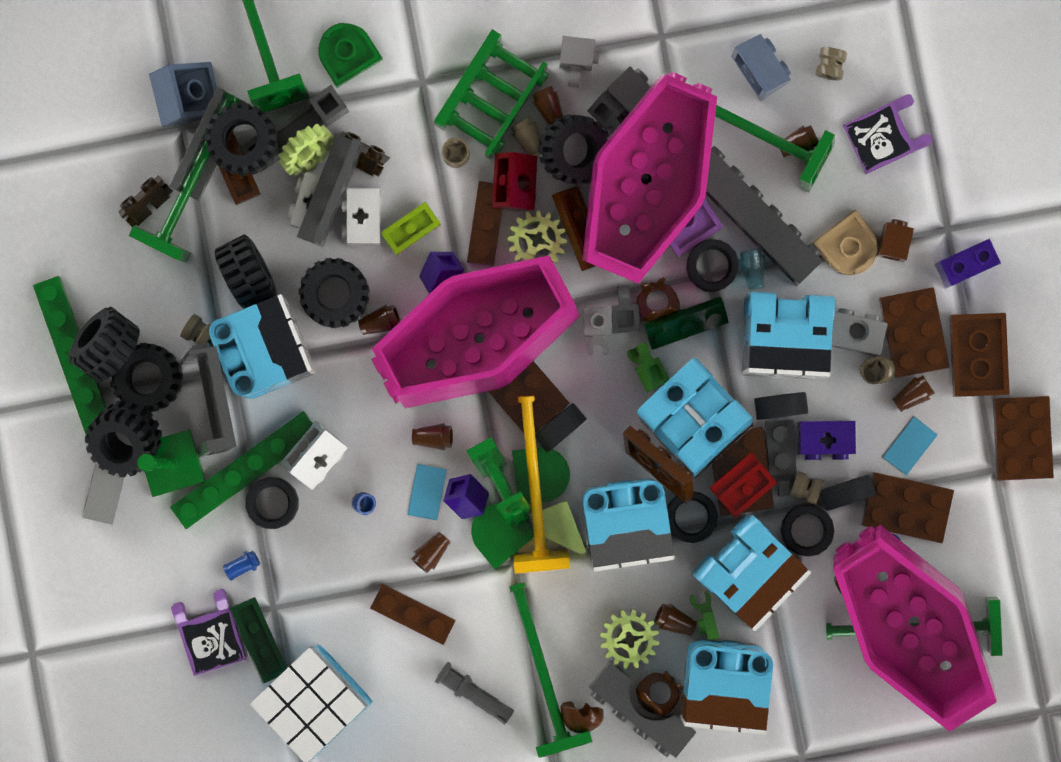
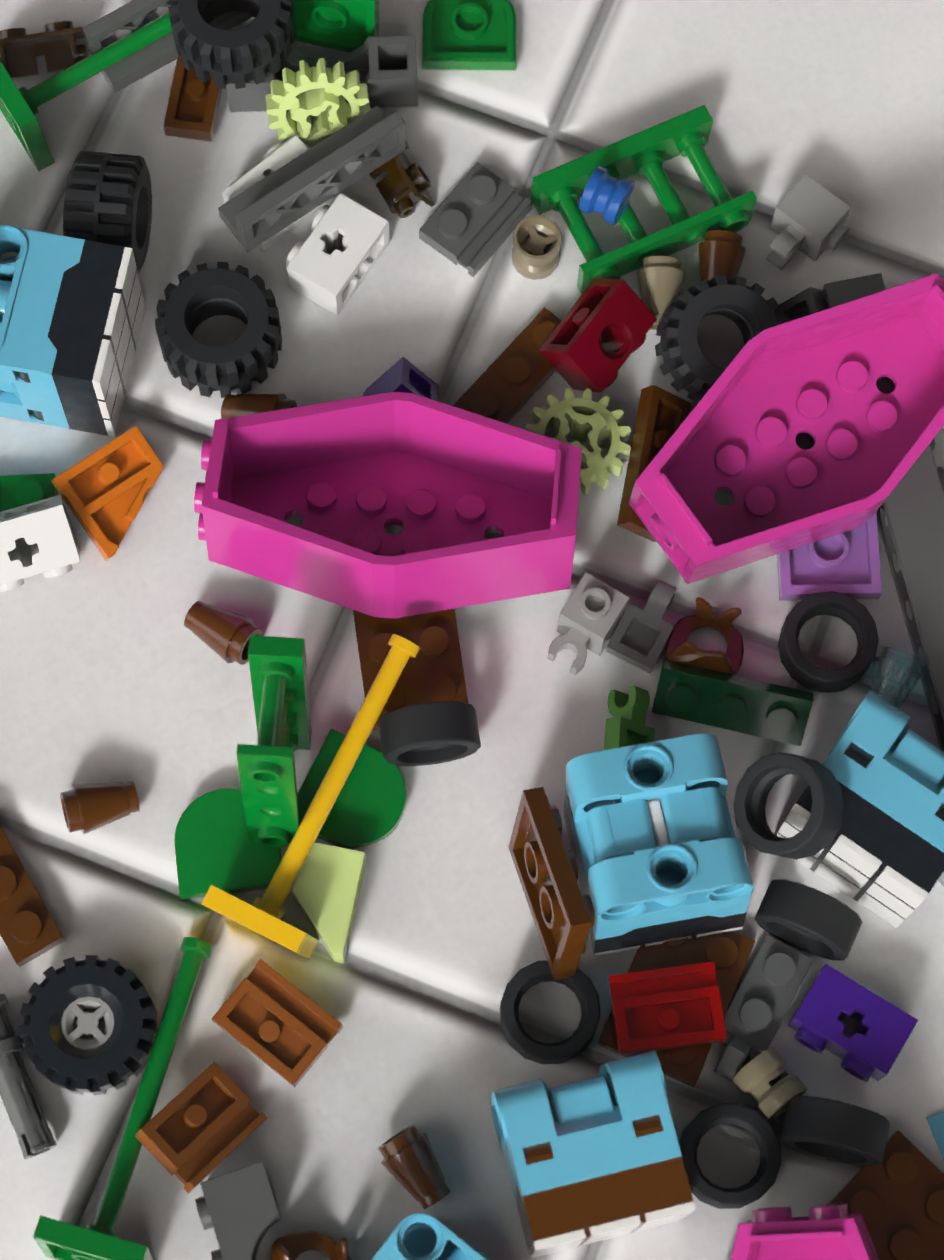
camera: 30 degrees right, 15 degrees down
(334, 401) = (110, 488): none -> orange wing
(365, 501) = (55, 667): blue hinge -> none
(411, 228) = (397, 313): lime plate -> none
(415, 154) = (475, 219): none -> dark grey plate
(427, 492) = (157, 713): medium azure sticker -> none
(466, 496) = (207, 752): dark purple panel -> none
(476, 109) = (606, 195): none -> blue wheel
(493, 664) = (71, 1005): none -> black wheel
(573, 663) = (200, 1127): none -> dark orange plate
(575, 597) = (277, 1023): none -> dark orange plate
(581, 719) = (145, 1225): reddish brown hair -> none
(612, 643) = (313, 1170): yellowish green gear -> none
(627, 524) = (434, 942): medium azure piece -> none
(707, 623) = (465, 1204): bright green plate -> none
(731, 382) = (752, 798): none -> black tyre

